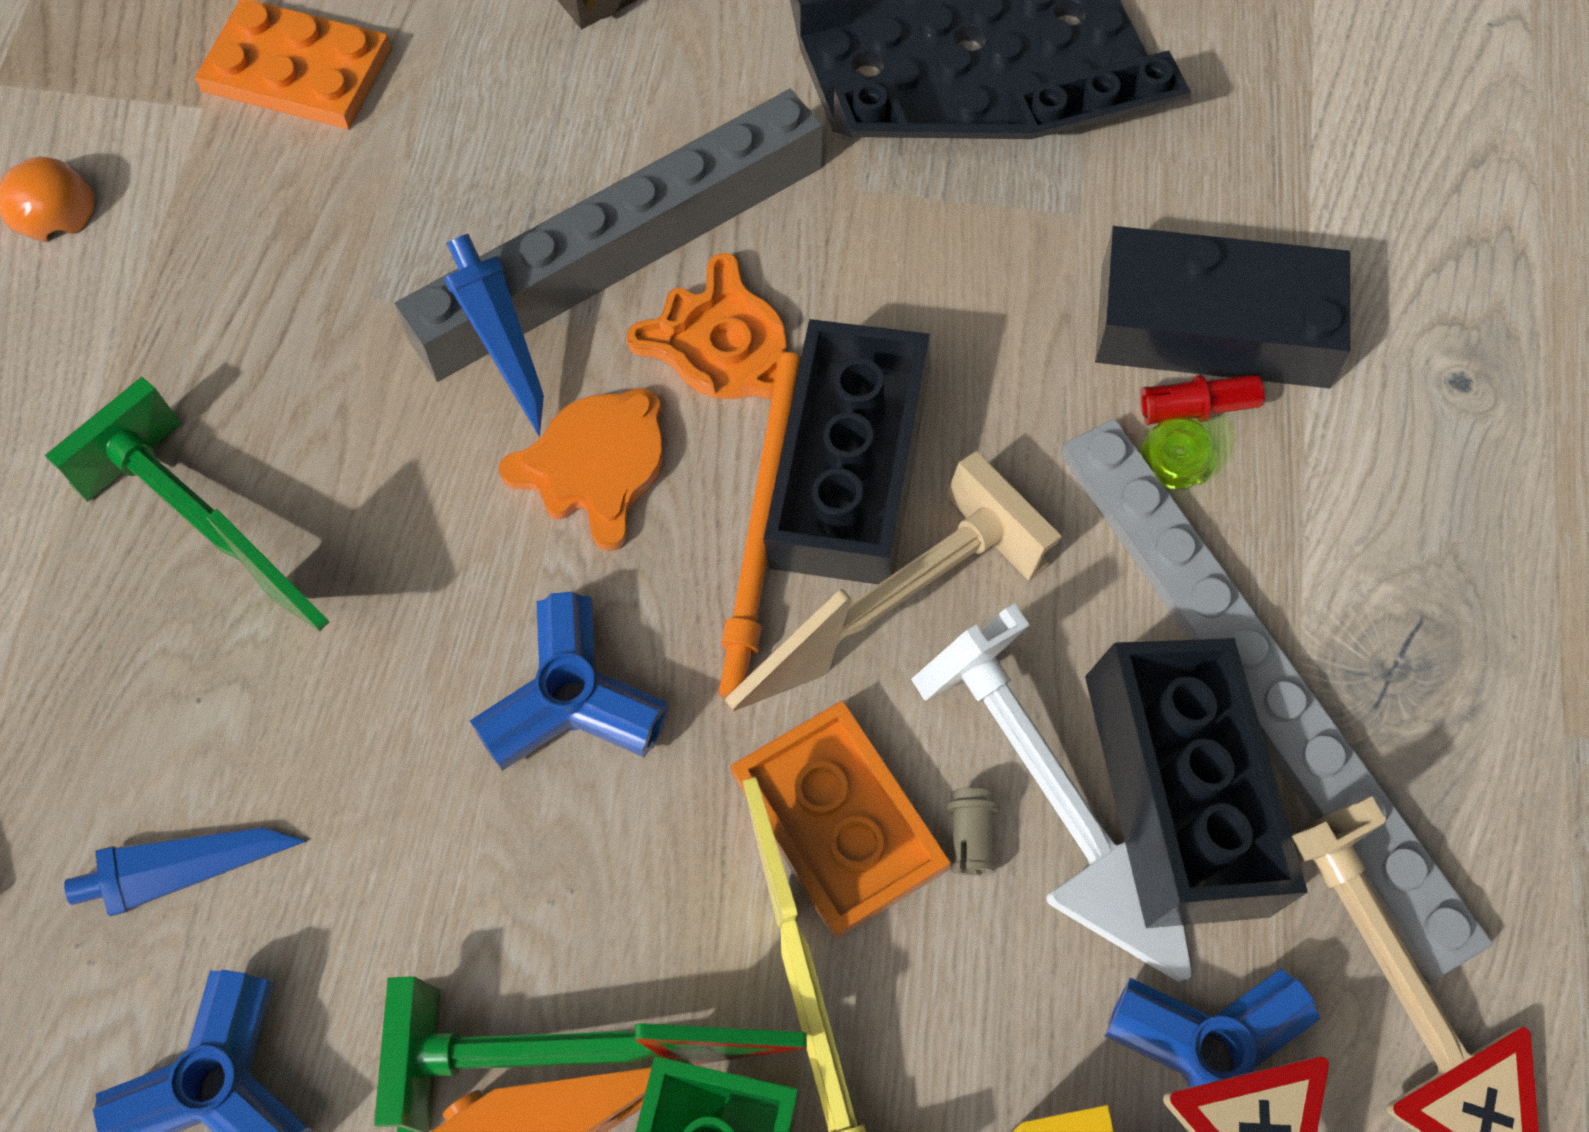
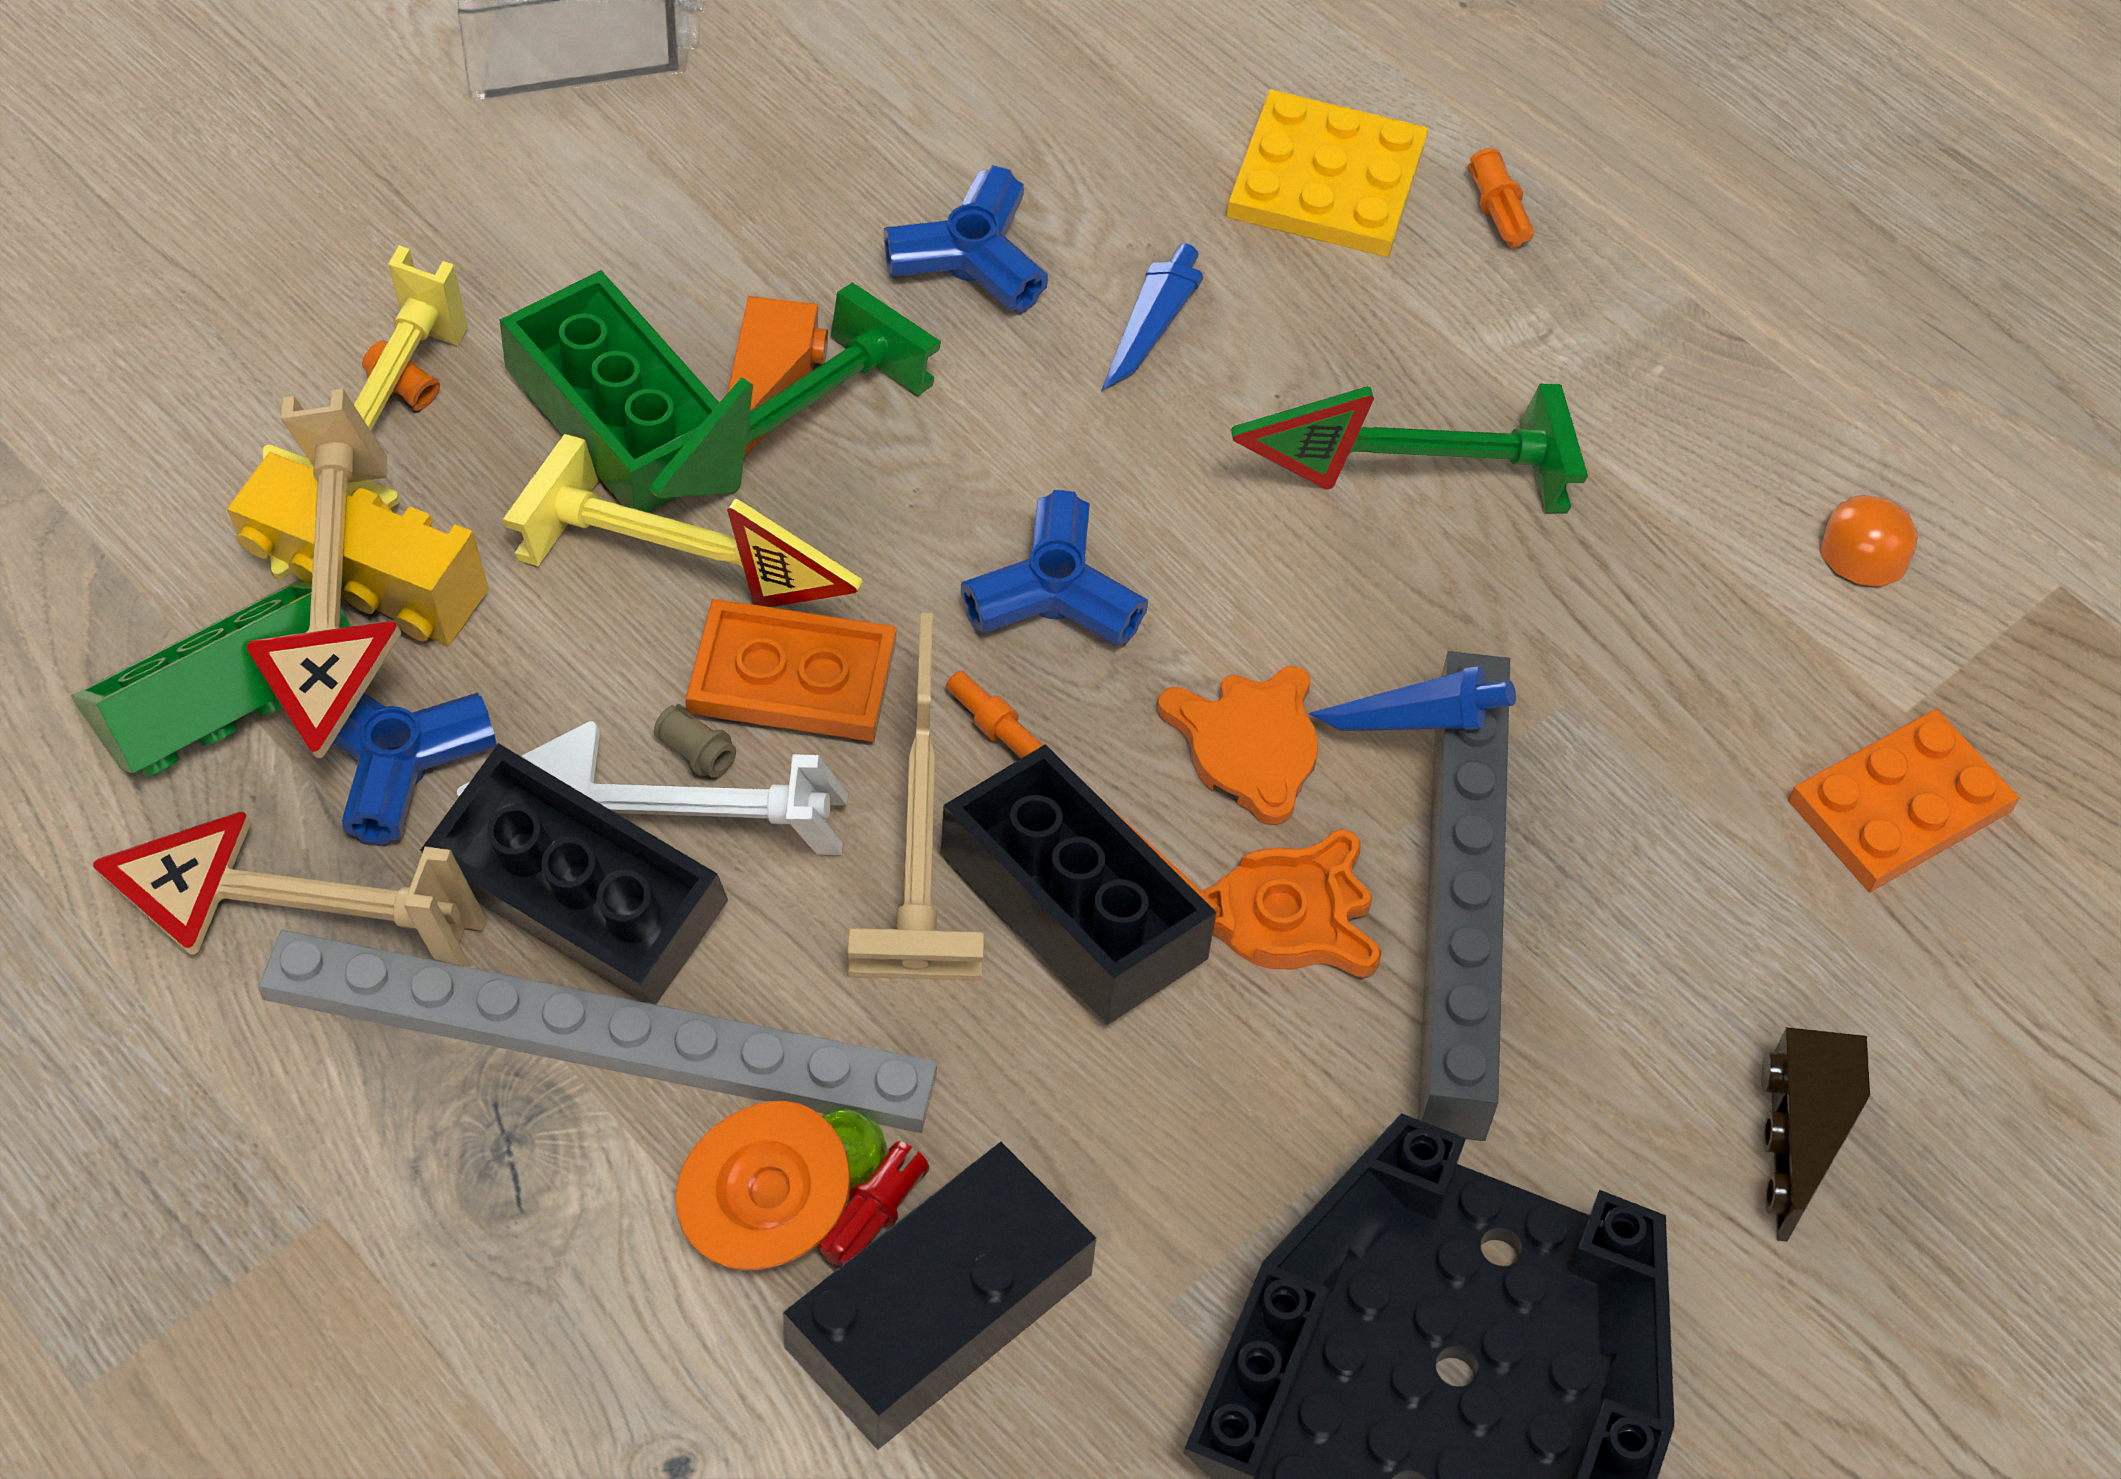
camera: 125 degrees right, 10 degrees down
(1271, 457) = (763, 1186): none -> orange hat

